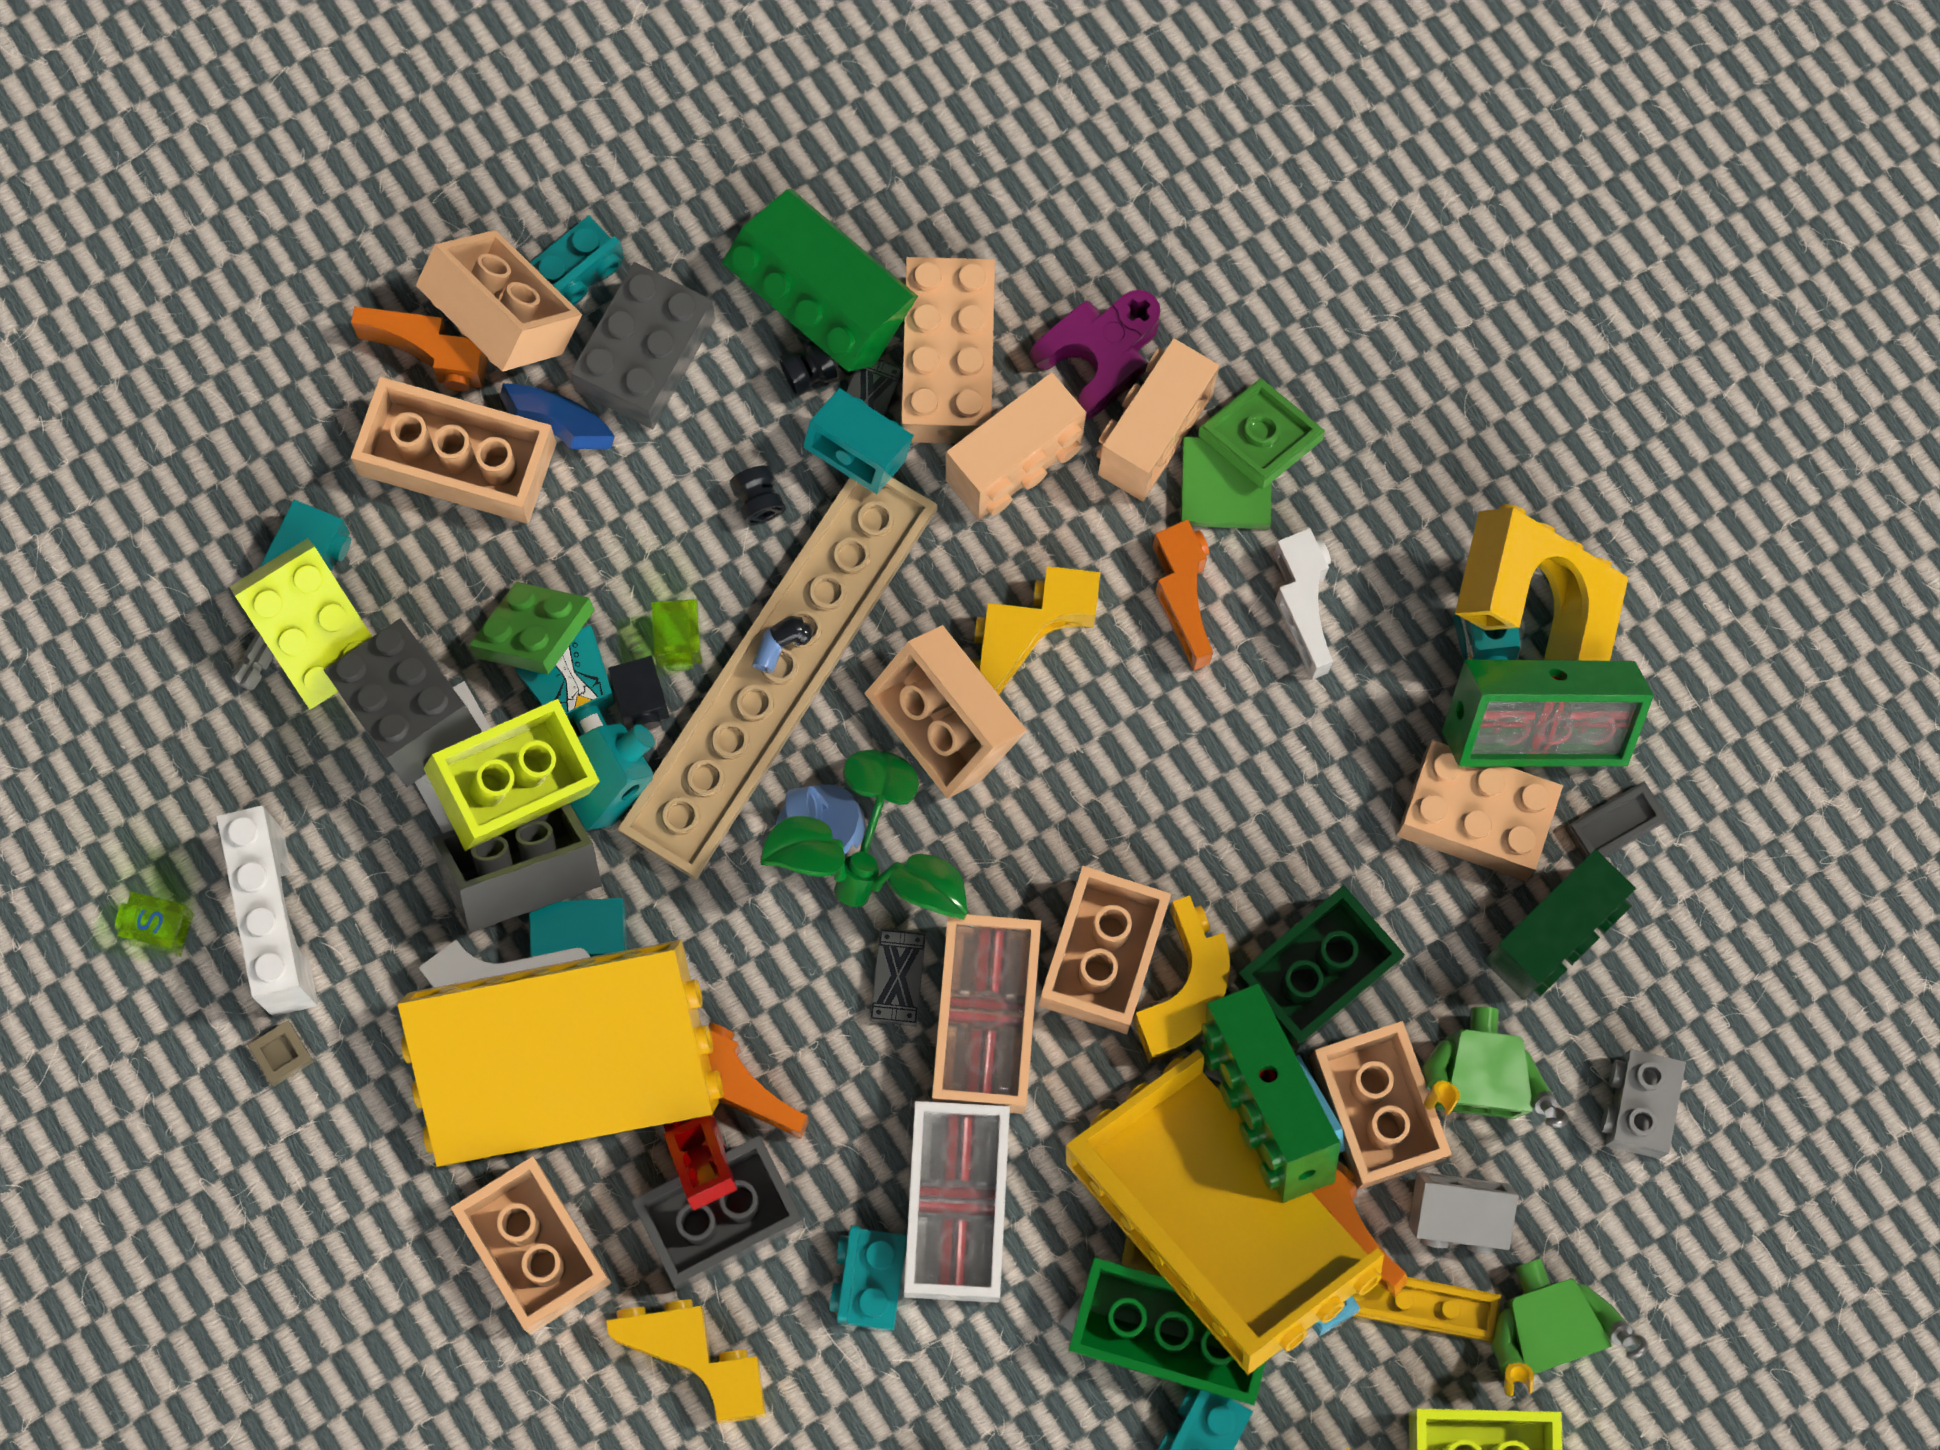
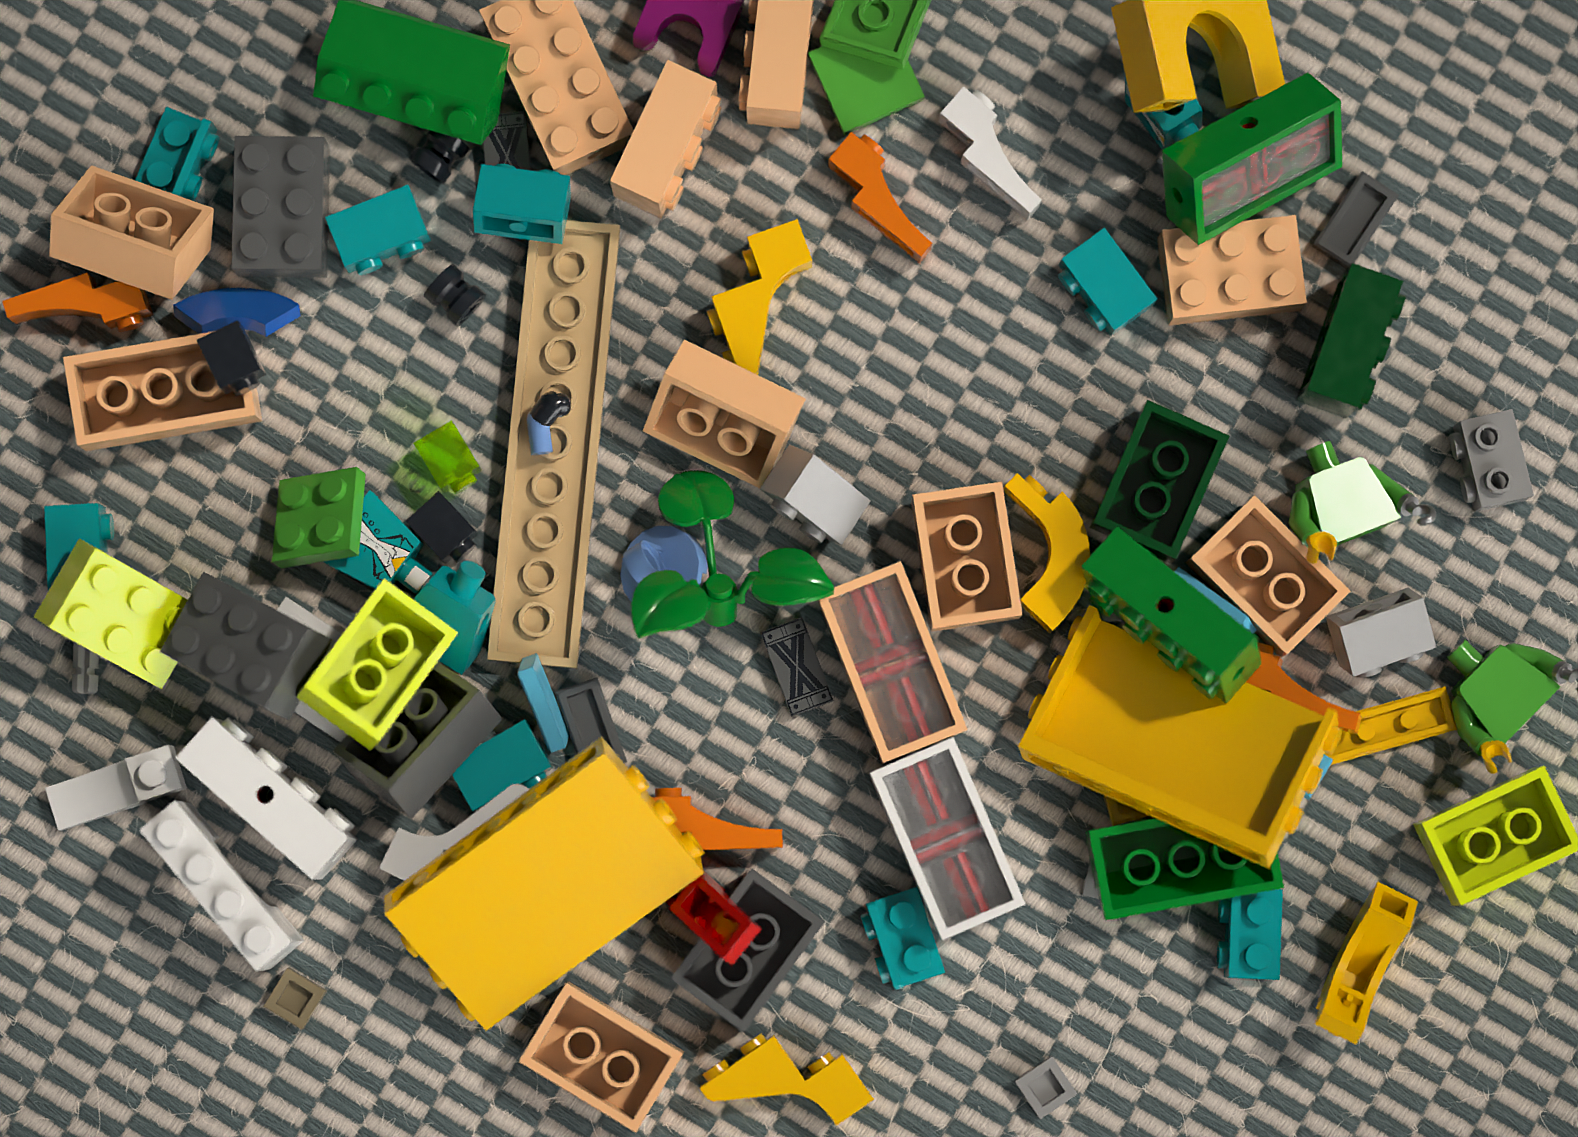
camera: 25 degrees left, 10 degrees up
(154, 924) = (124, 943): clear neon green brick -> none
(223, 780) = (116, 787): none -> white slope
(350, 853) = (243, 778): none -> white brick
(527, 445) = (232, 359): none -> black brick
(647, 892) = (543, 703): none -> medium azure tile
(685, 918) = (588, 716): none -> dark grey tile
(719, 407) = (379, 230): none -> teal brick
(991, 824) = (814, 495): none -> brick
(1356, 767) = (1105, 283): none -> teal brick

